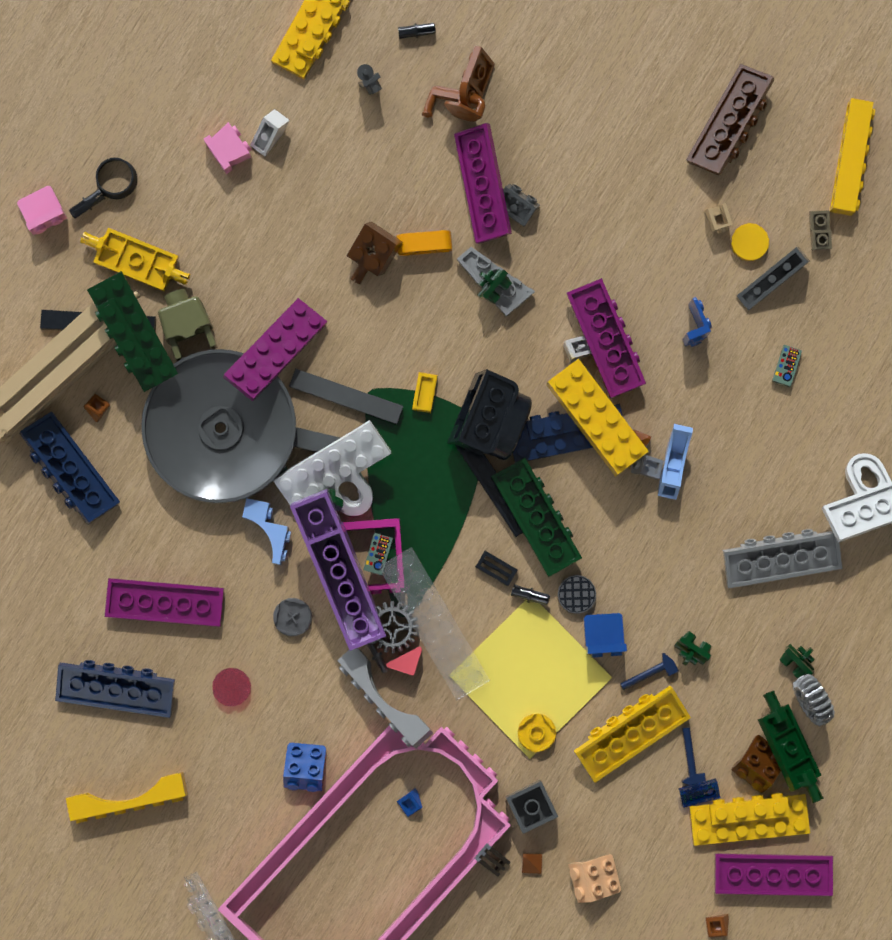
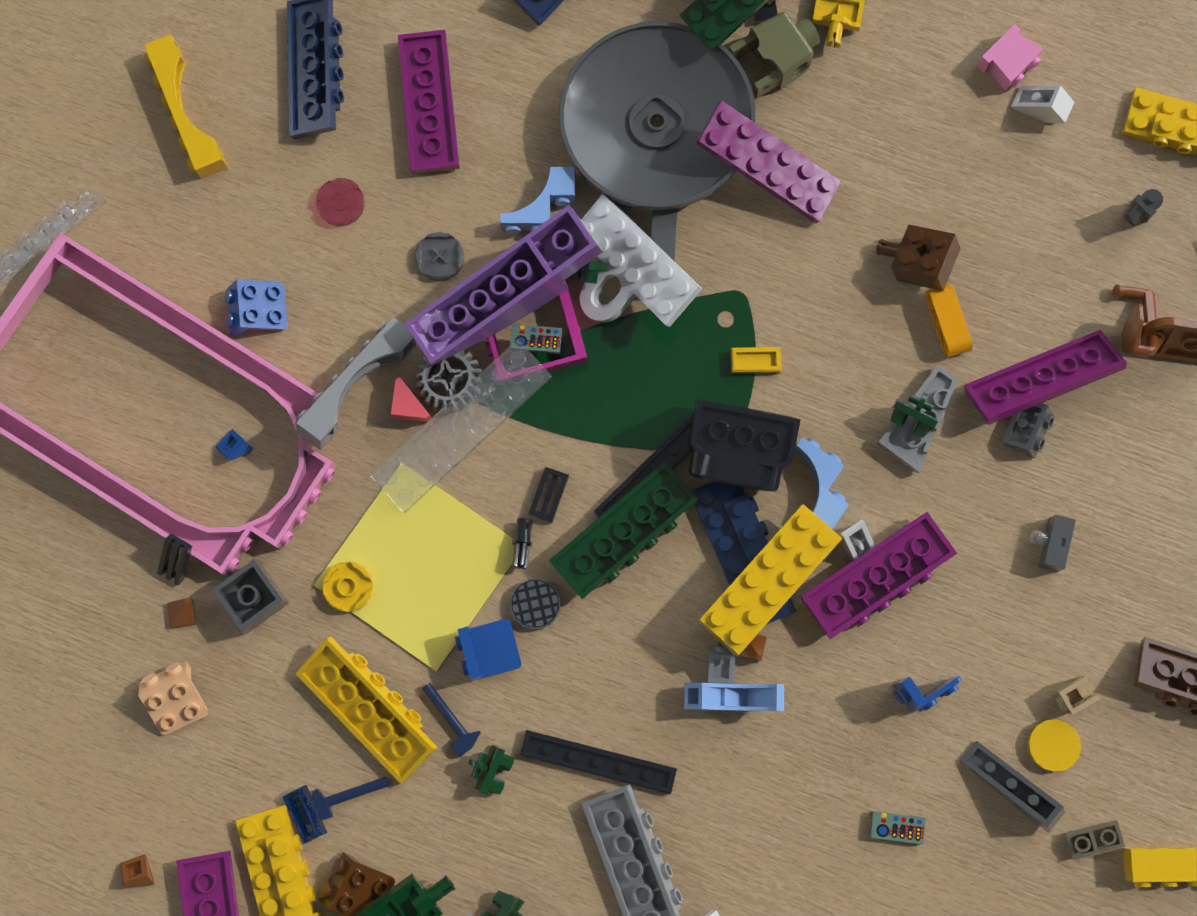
camera: 85 degrees right, 5 degrees down
(346, 396) = (729, 265): dark grey tile -> none
(377, 657) = (406, 369): flat silver piece -> none
(519, 358) = (825, 468): none -> light blue arch
(605, 206) = (1055, 542): none -> dark grey piece
(700, 570) = (598, 762): none -> black tile

